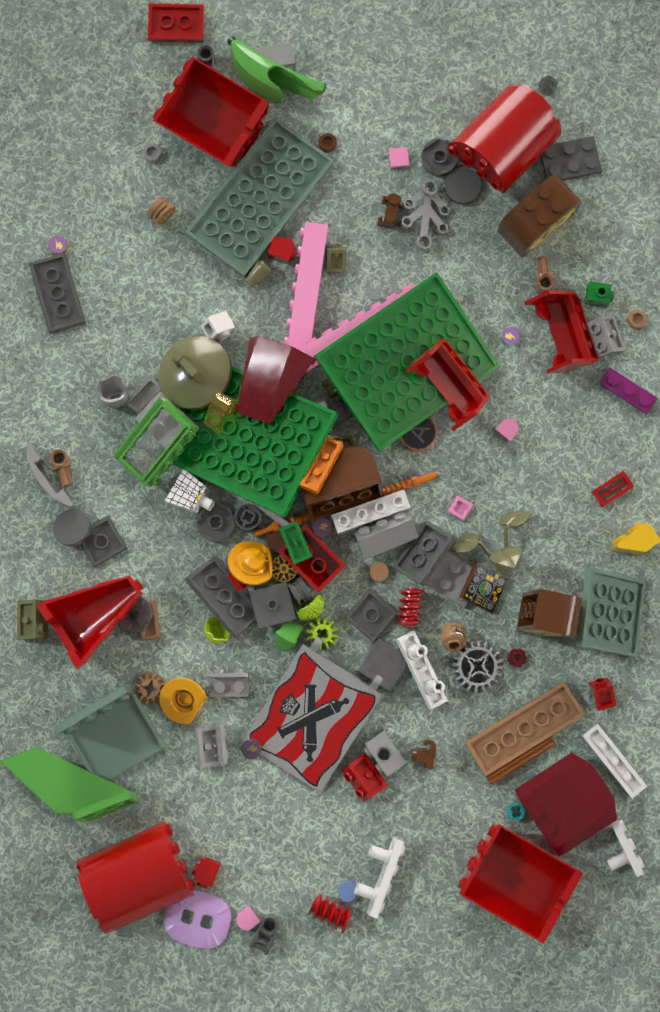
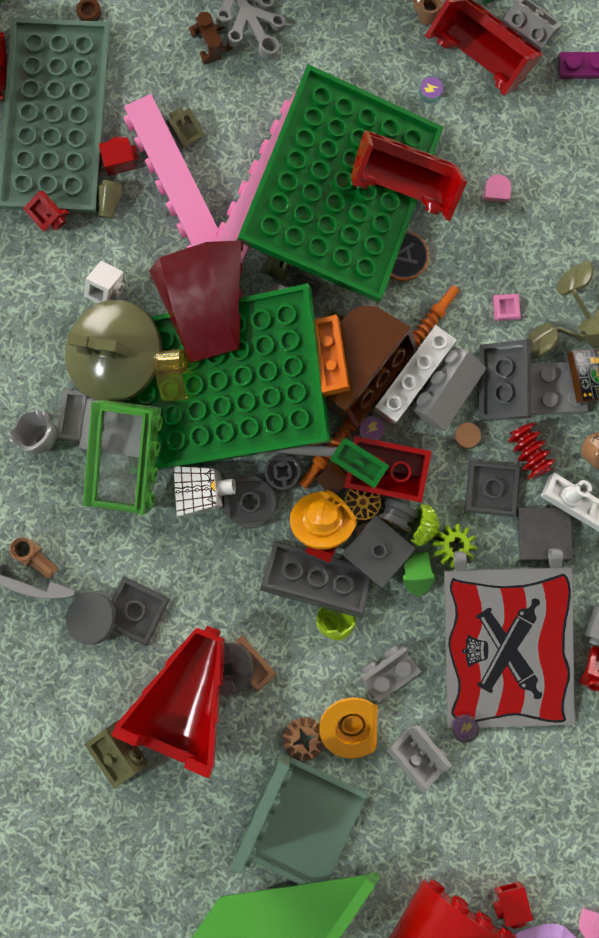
camera: 35 degrees left, 0 degrees up
(212, 258) = (45, 212): none -> red bracket

